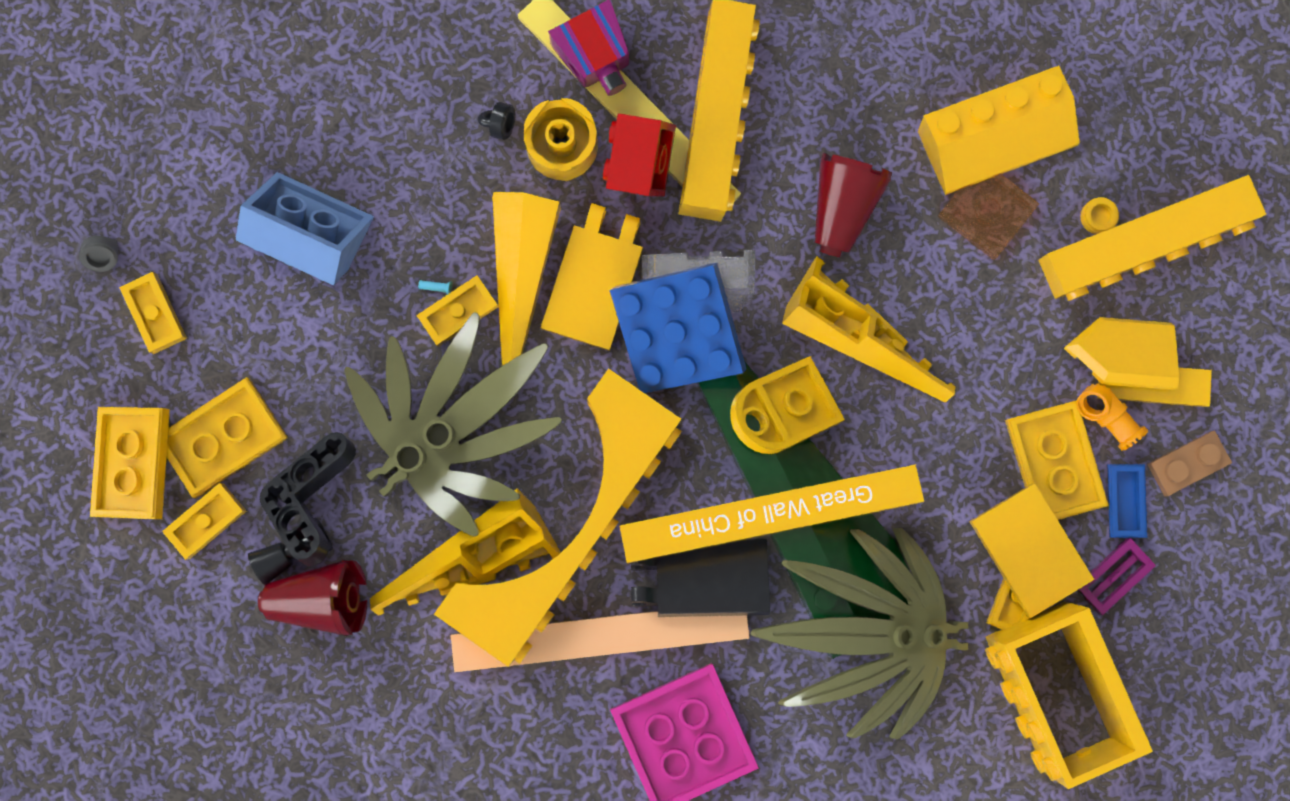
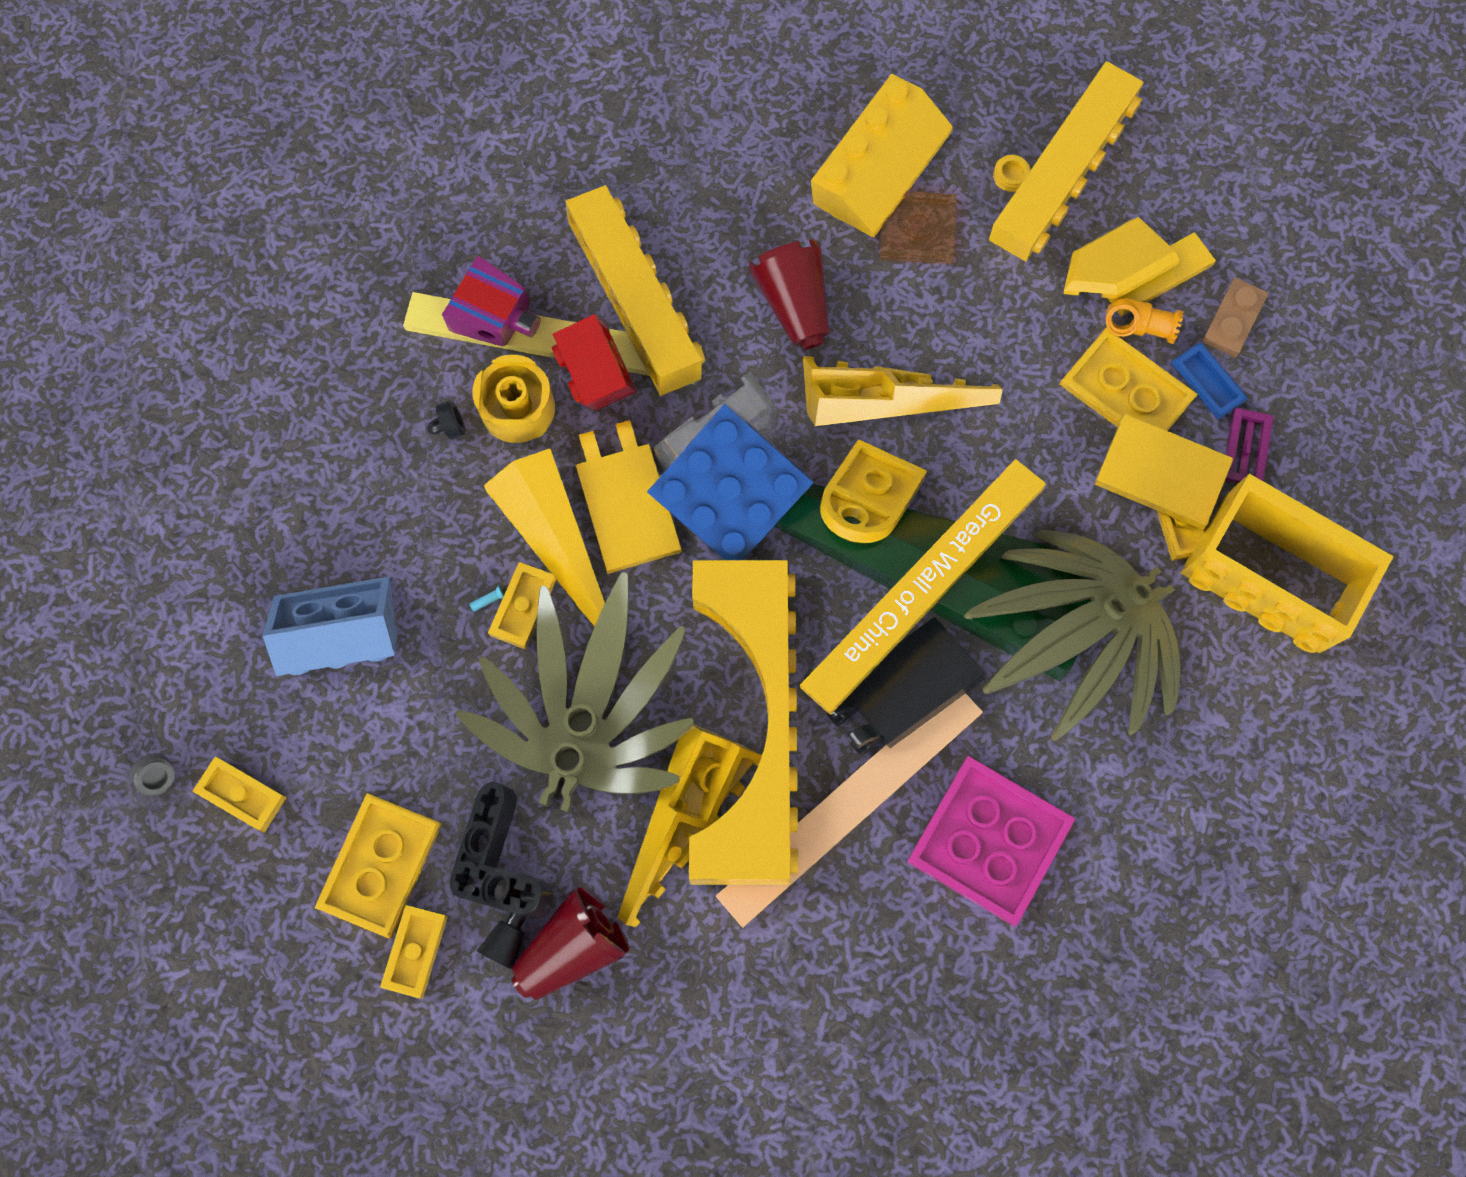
camera: 30 degrees left, 10 degrees down
(130, 462) = (306, 946): yellow tile -> none

